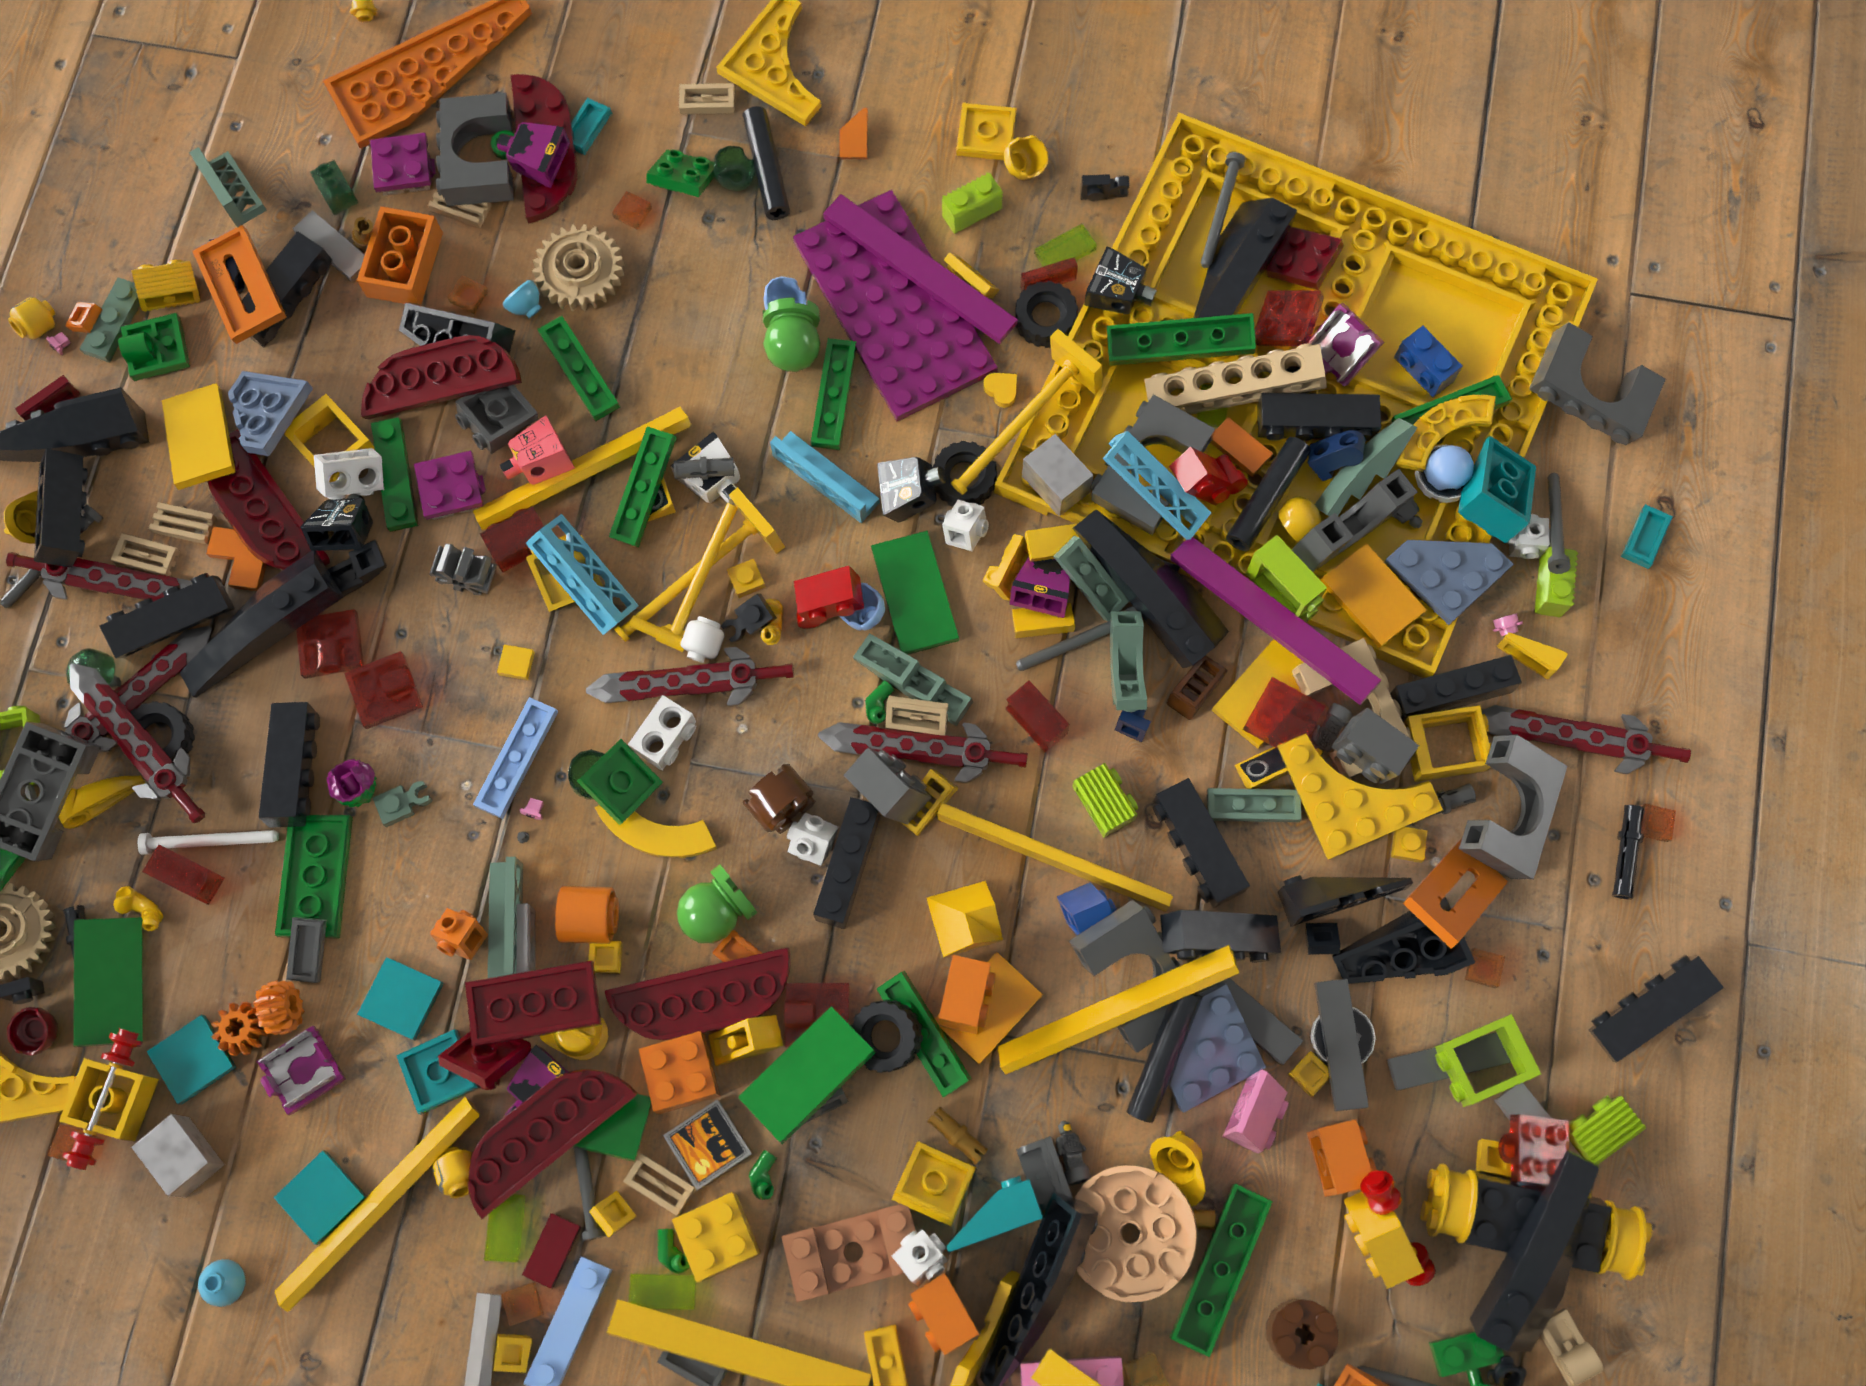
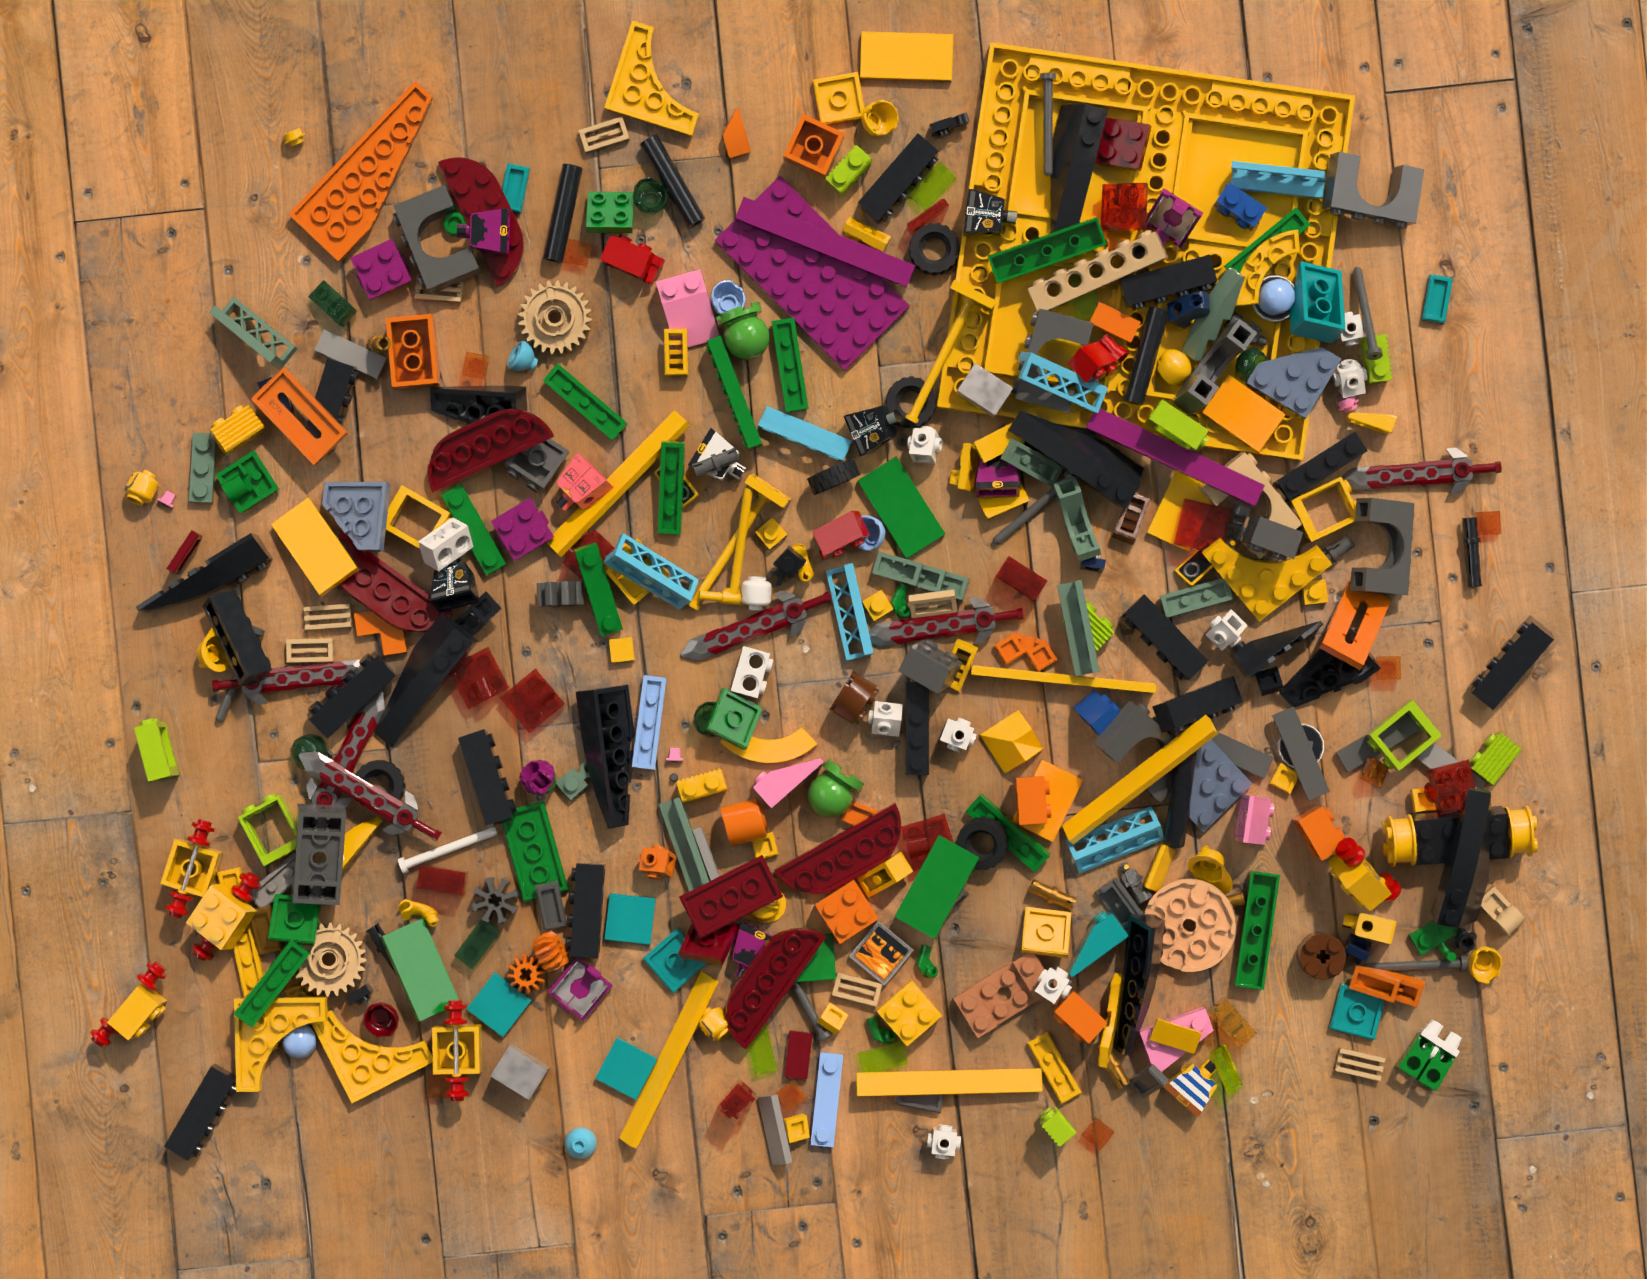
camera: 20 degrees left, 15 degrees up
(83, 317) = (180, 474): orange tile -> none
(194, 970) = (477, 943): none -> clear green plate
(238, 935) = (492, 906): none -> dark grey gear
(348, 970) = (587, 910): none -> black brick
(443, 1283) = (736, 1099): none -> clear red hinge
(454, 764) = (606, 739): none -> black wedge
(510, 577) = (598, 589): none -> green plate
(551, 853) = (702, 785): none -> yellow brick
(629, 163) = (562, 213): none -> black piece
(650, 877) = (780, 782): none -> bright pink slope
(688, 360) = (667, 352): none -> yellow slope
(689, 228) = (632, 259): none -> red hinge
(734, 299) = (688, 307): none -> bright pink slope
(755, 405) = (733, 390): none -> green piece
(820, 694) = (858, 610): none -> medium azure fence
(842, 526) = (833, 476): none -> black tyre
(848, 700) = (877, 605): none -> yellow plate
(893, 875) = (951, 728): none -> white brick
(939, 164) = (813, 146): none -> orange brick
(1001, 387) = (917, 320): yellow tile -> none
(1008, 799) = (1036, 650): none -> orange tile
(1027, 228) = (898, 178): none -> black brick
(1064, 1092) = (1117, 843): none -> medium azure fence
(1077, 108) = (906, 56): none -> yellow tile
(1091, 793) = (1078, 628): none -> sand green fence
(1112, 1142) = (1159, 867): none -> yellow slope
(1282, 855) = (1226, 630): none -> white brick
(1356, 1338) = (1357, 947): none -> dark blue tile
(1392, 537) = (1247, 362): none -> clear green hair
(1397, 1321) = (1382, 929): none -> yellow torso
(1434, 1100) = (1374, 772): none -> clear orange plate
(1483, 343) = (1278, 179): none -> medium azure fence
(1518, 593) = (1350, 378): none -> white brick

